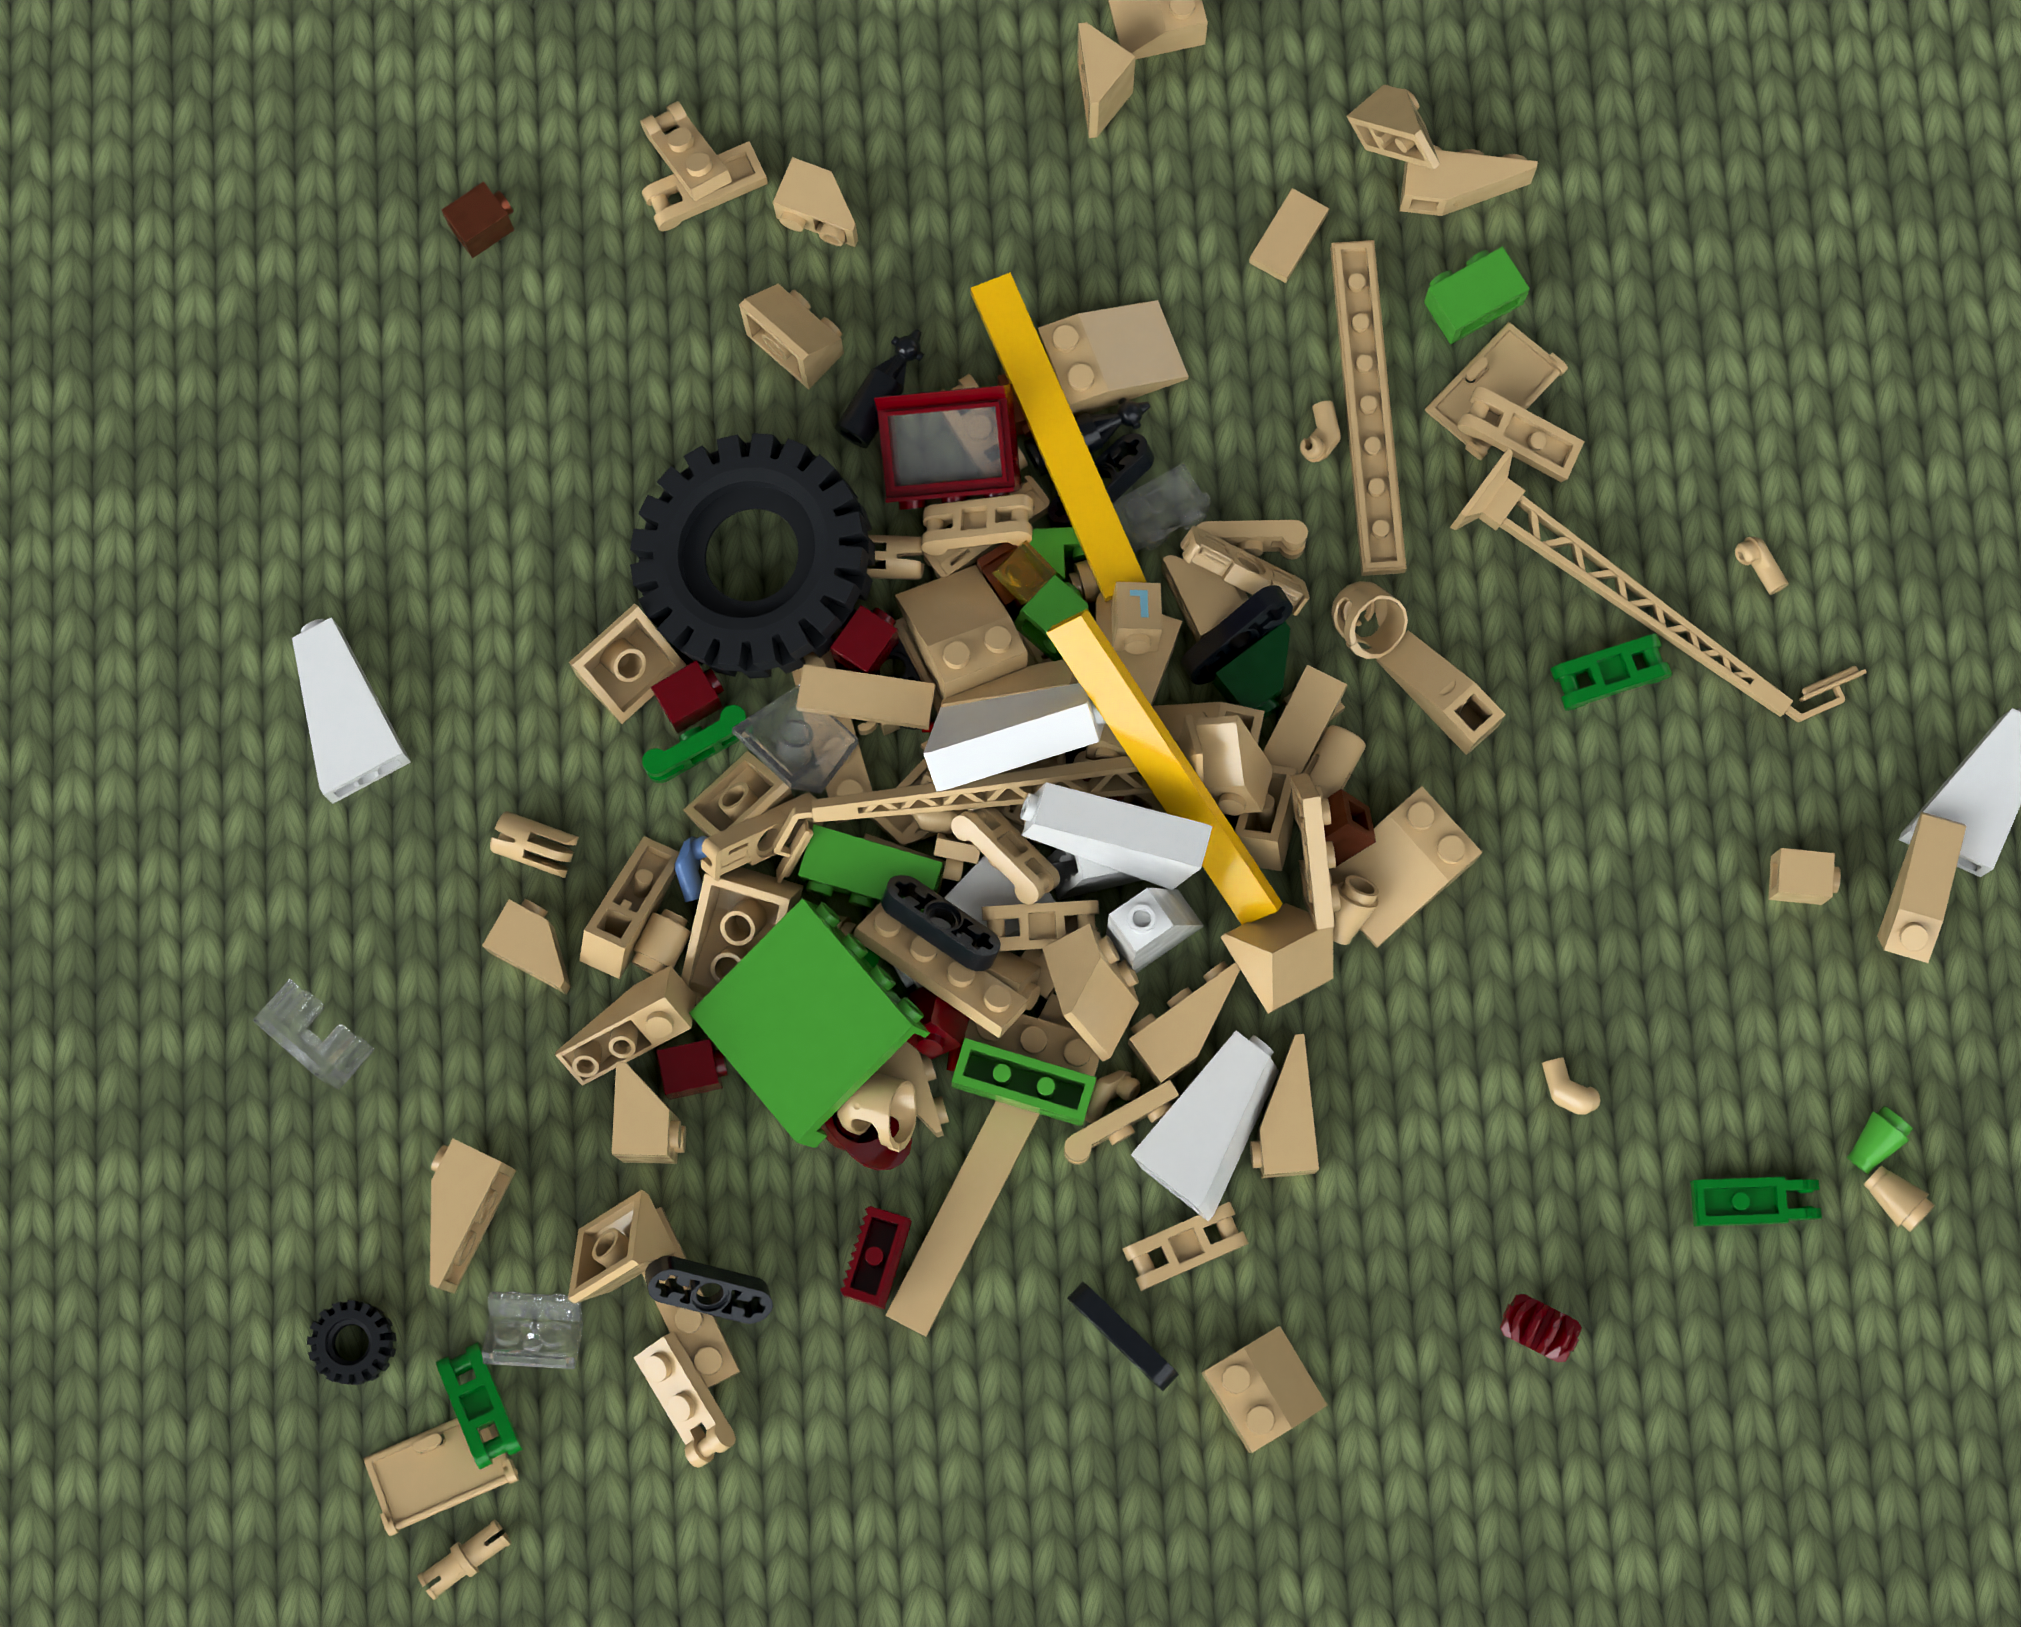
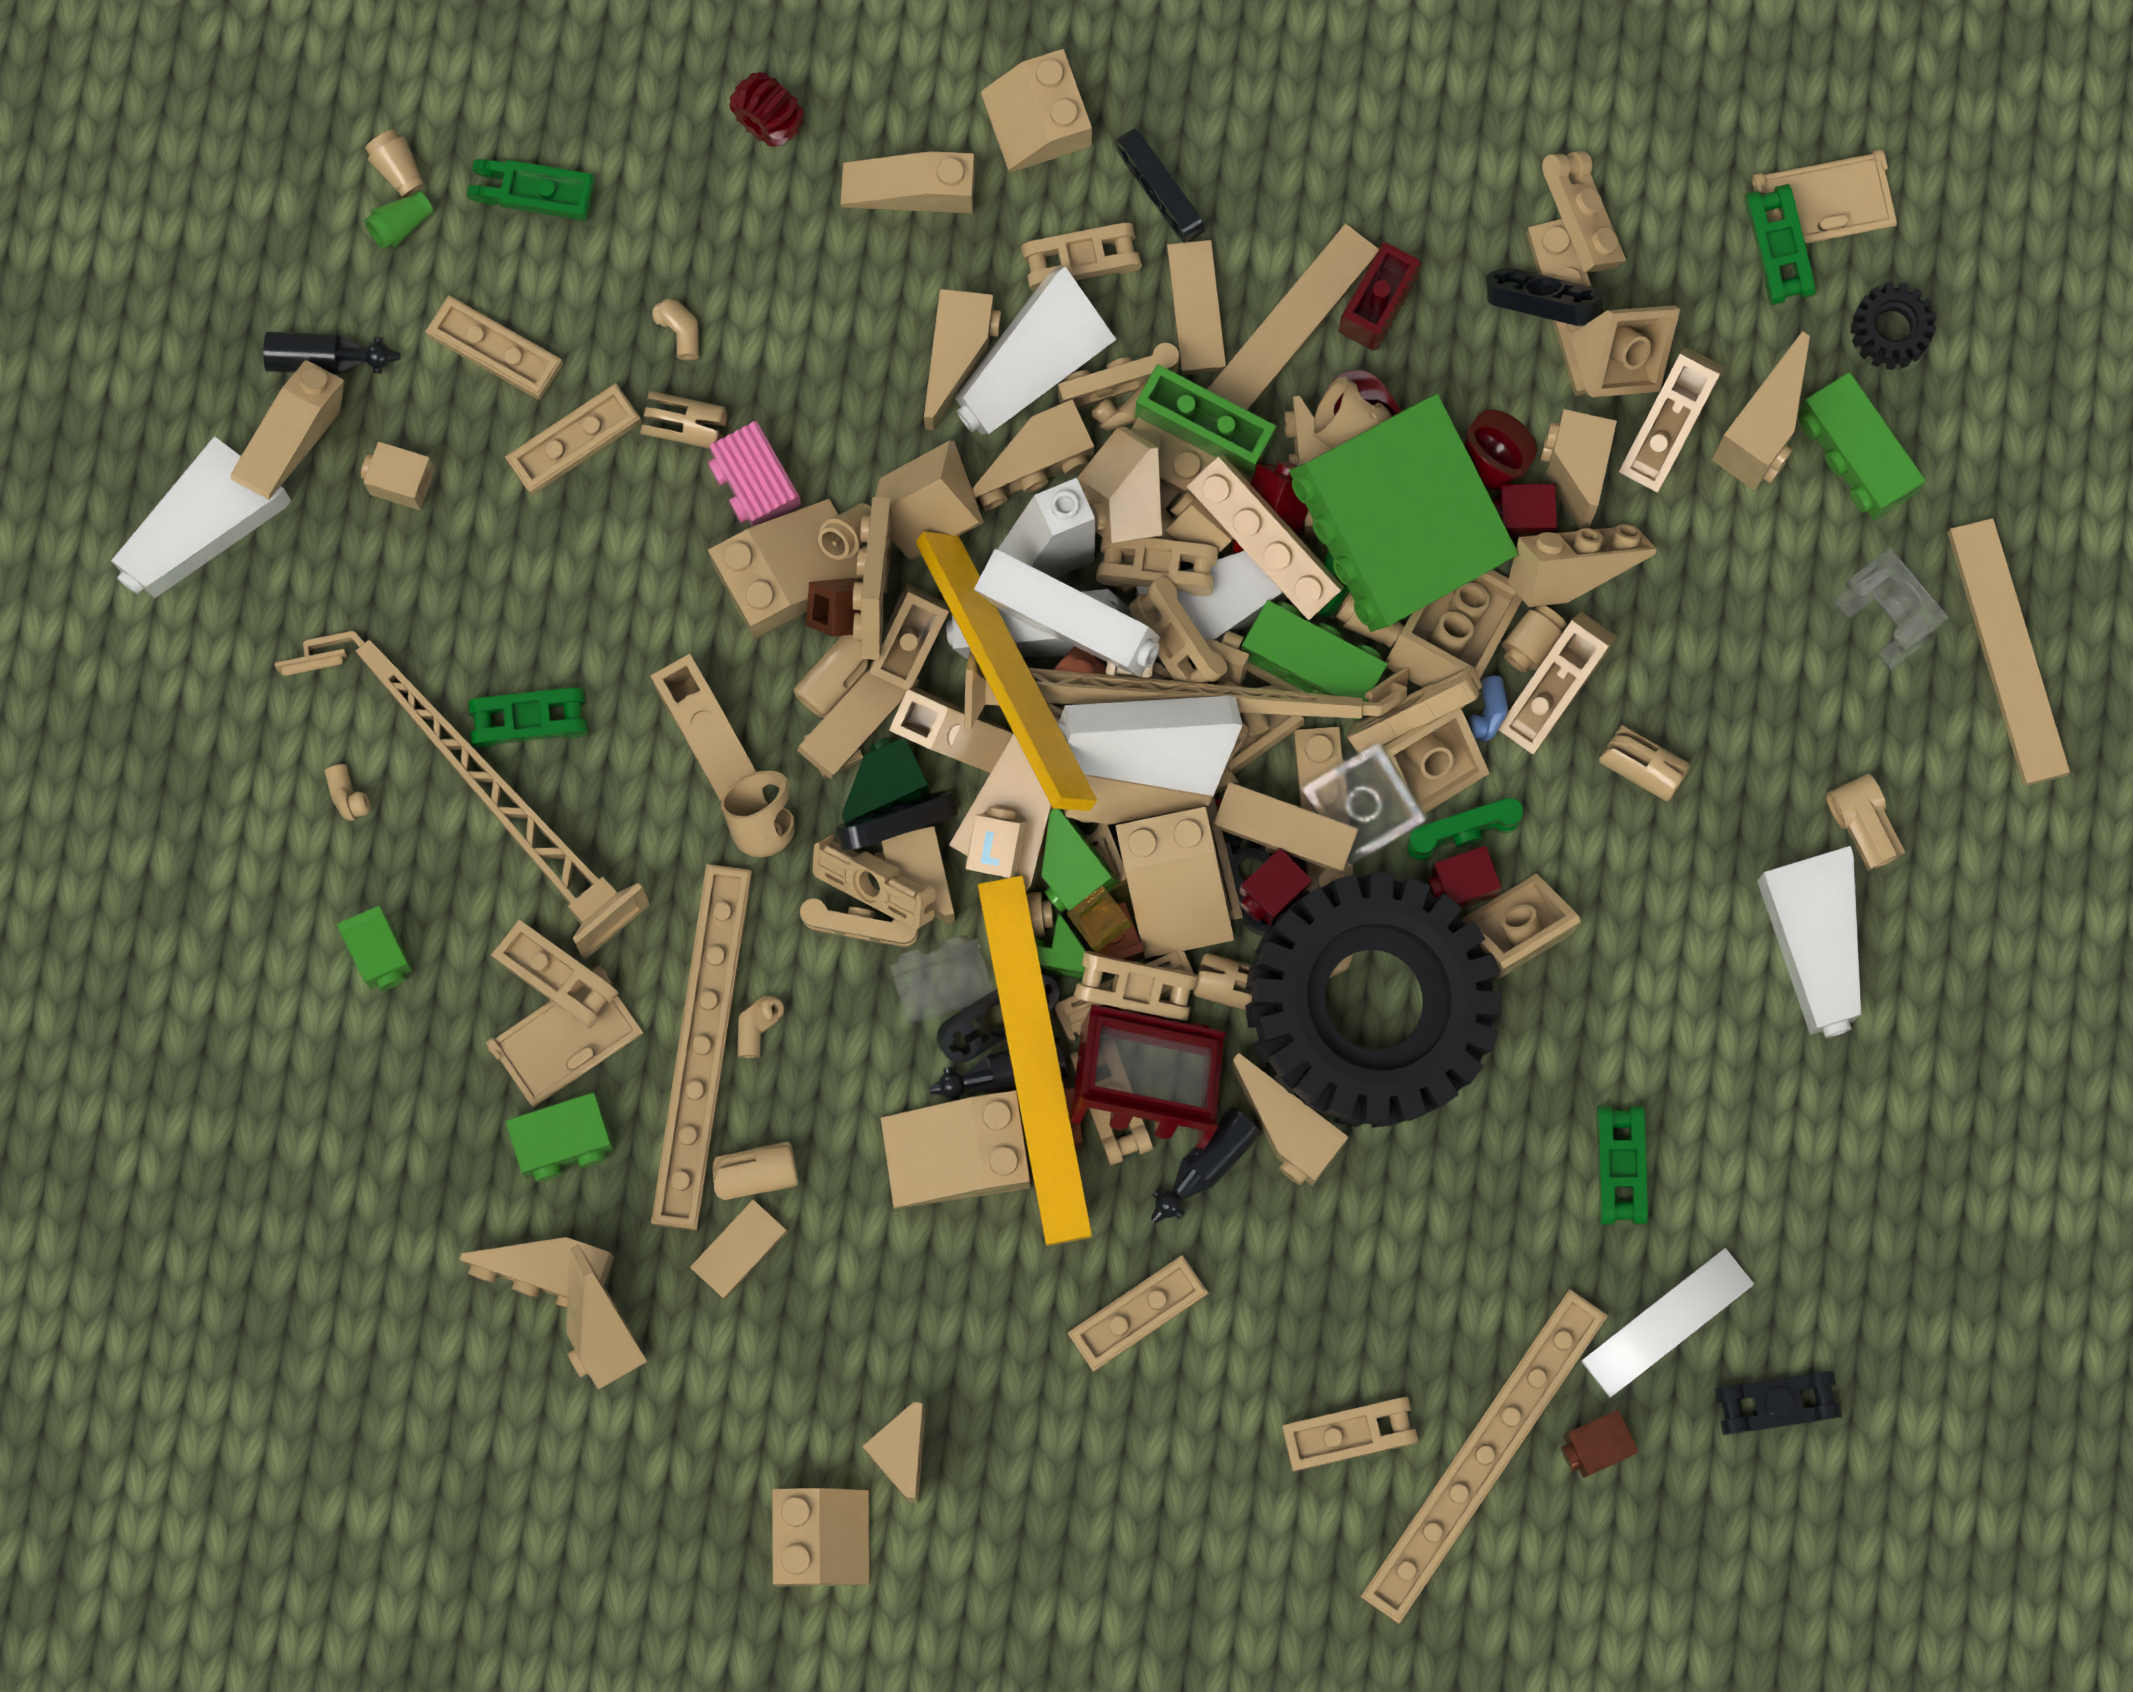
camera: 170 degrees left, 0 degrees up
(196, 1032) = (2008, 652): none -> tan tile
(318, 839) = (1861, 810): none -> tan piece
(324, 291) = (1778, 1403): none -> black plate
(367, 1204) = (1860, 447): none -> bright green brick
(429, 339) = (1667, 1322): none -> white slope
(464, 1559) = (1814, 114): tan pin -> none
(497, 469) = (1622, 1164): none -> green plate
(529, 943) = (1664, 662): tan slope -> none
(532, 1330) = (1719, 298): clear bracket -> none
(559, 1199) = (1671, 419): none -> tan slope
(580, 197) = (1483, 1456): none -> tan tile
(686, 152) = (1363, 1469): tan plate -> none
(728, 1126) = (1499, 448): none -> dark red piece
(792, 333) = (1286, 1240): tan slope -> none
(796, 417) = (1293, 1130): none -> tan slope
(814, 202) = (1234, 1388): tan slope -> none
(916, 253) = (1137, 1313): none -> tan tile
(945, 939) = (1237, 576): black beam -> none
(1059, 1218) = (1196, 307): none -> tan tile
(1233, 765) = (934, 670): tan slope -> none
(1291, 300) = (755, 1171): none -> tan arm
(1376, 1285) = (911, 182): none -> tan slope
(1456, 947) = (754, 476): none -> bright pink brick
(1539, 990) = (696, 415): none -> tan arm
(1642, 954) = (573, 439): none -> tan tile
(1691, 420) = (376, 948): none -> bright green slope
(1745, 1031) = (494, 347): none -> tan tile
(1914, 984) = (329, 351): none -> black wheel

